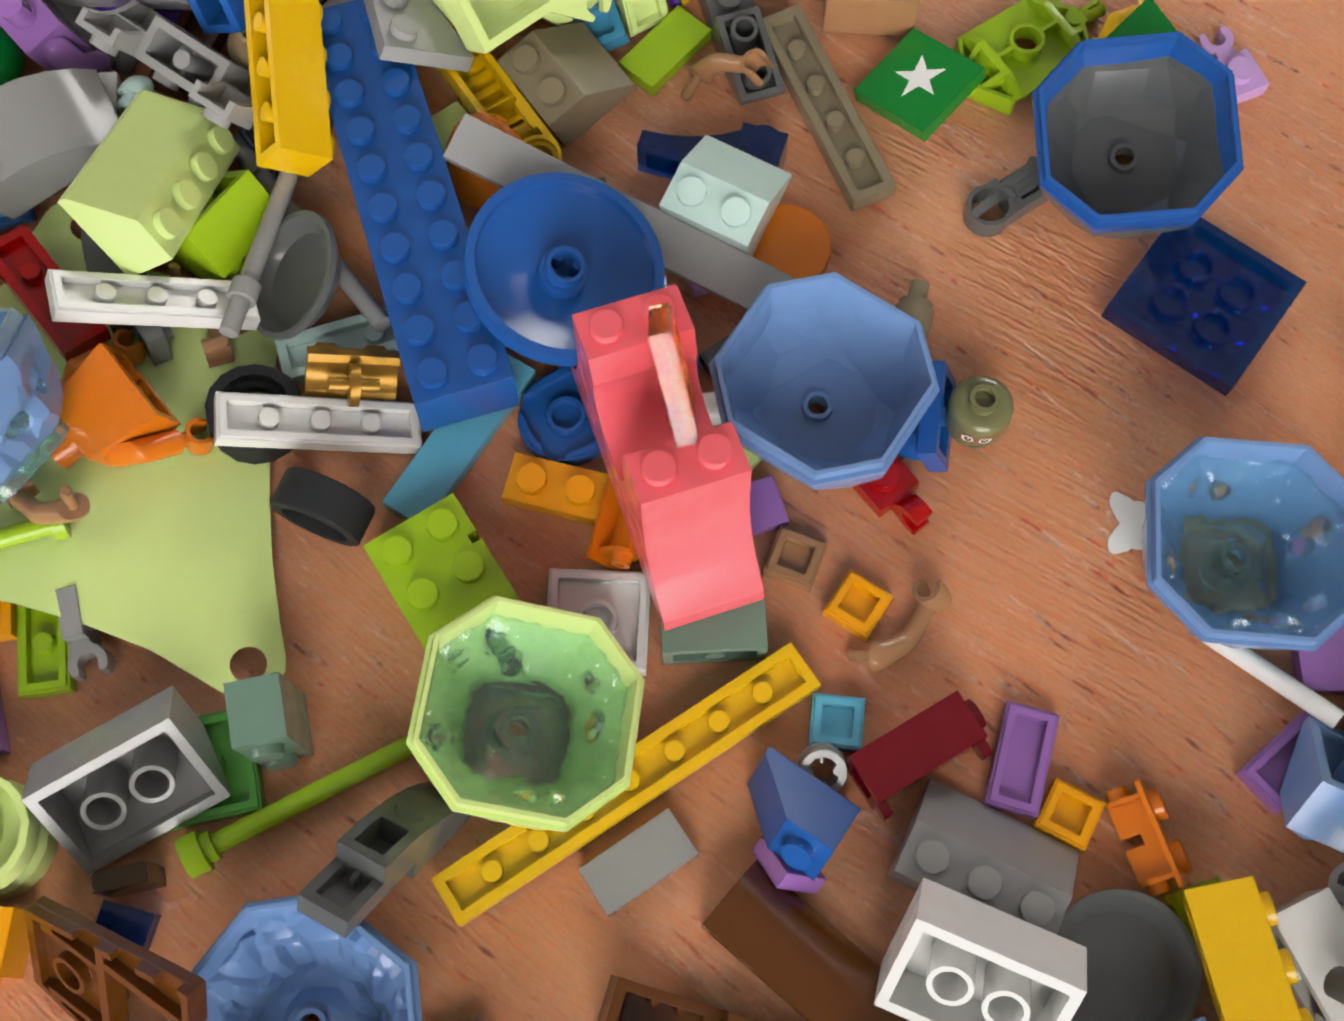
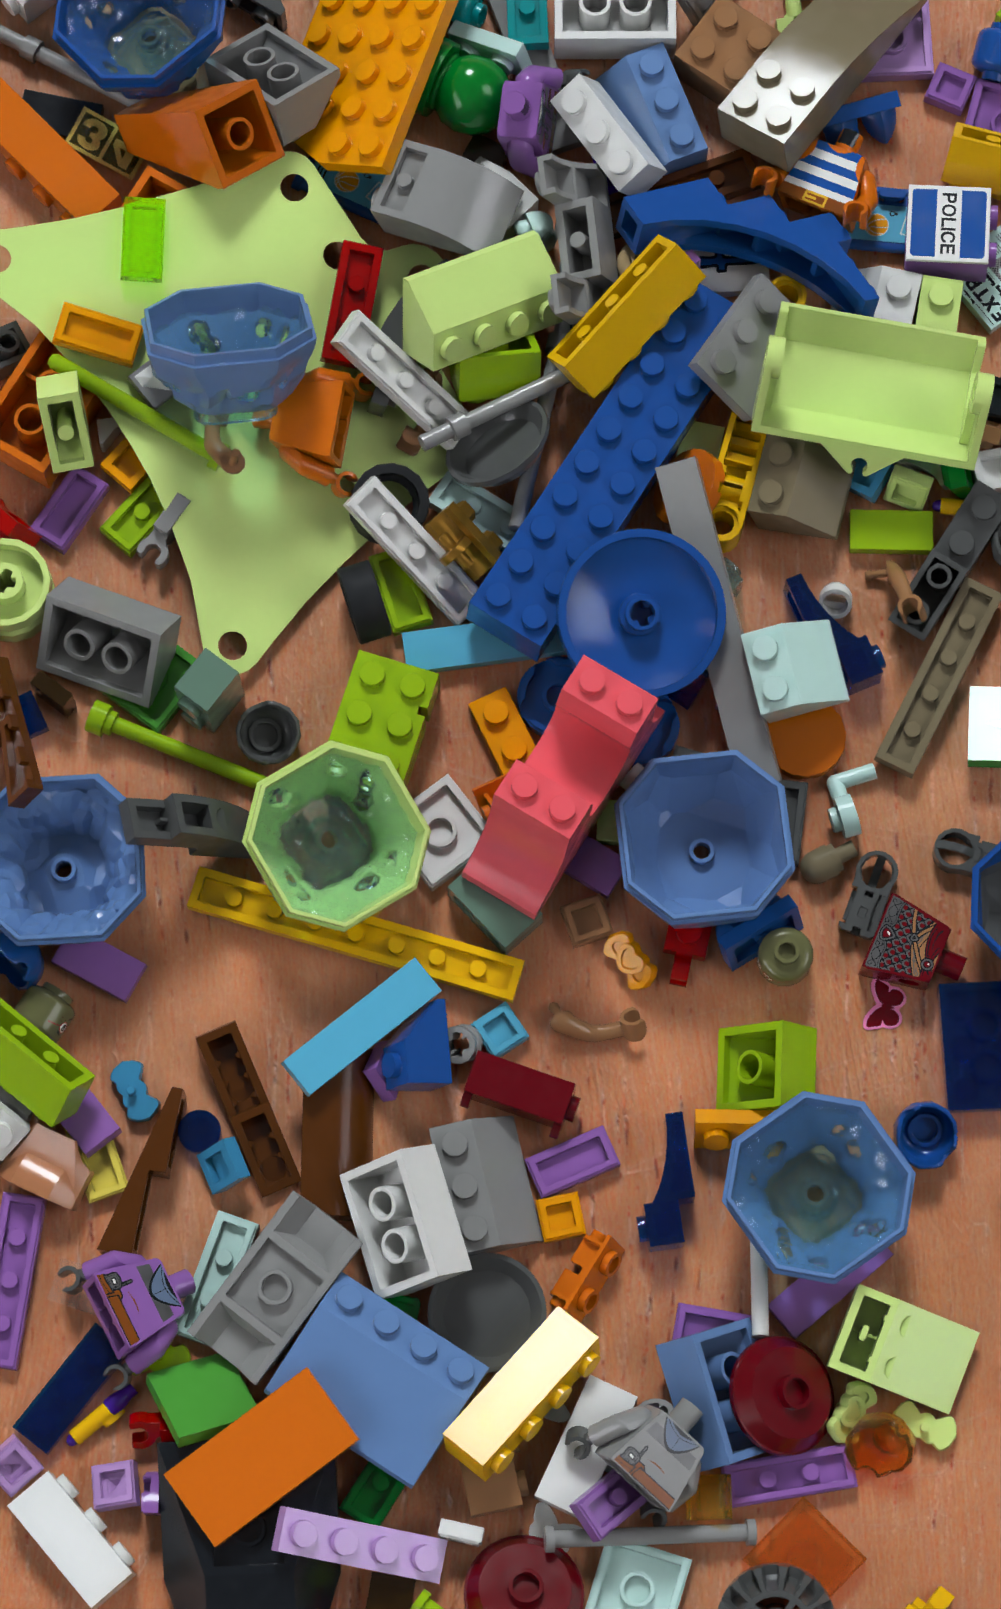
camera: 50 degrees right, 5 degrees up
(356, 470) = (402, 598): none -> lime tile
(362, 699) = (268, 733): none -> dark grey hair
(638, 862) = (312, 980): light grey tile -> none
(673, 374) = (588, 745): clear orange tile -> none
(679, 120) = (836, 605): none -> white hinge
(734, 856) = (361, 1027): none -> medium azure tile
(857, 605) = (589, 985): light orange tile -> none
(867, 548) = (631, 960): none -> light orange piece
(882, 263) = (844, 814): none -> light aqua plate
(980, 312) = (868, 902): none -> dark grey piece
(1049, 306) = (910, 948): none -> torso
(1070, 512) = (764, 1064): none -> lime slope
(1080, 366) = (886, 1011): none -> dark red sticker
(1102, 591) = (718, 1127): none -> light orange plate
(1146, 717) = (662, 1219): none -> clear blue slope
(1241, 415) = (925, 1134): none -> blue hair

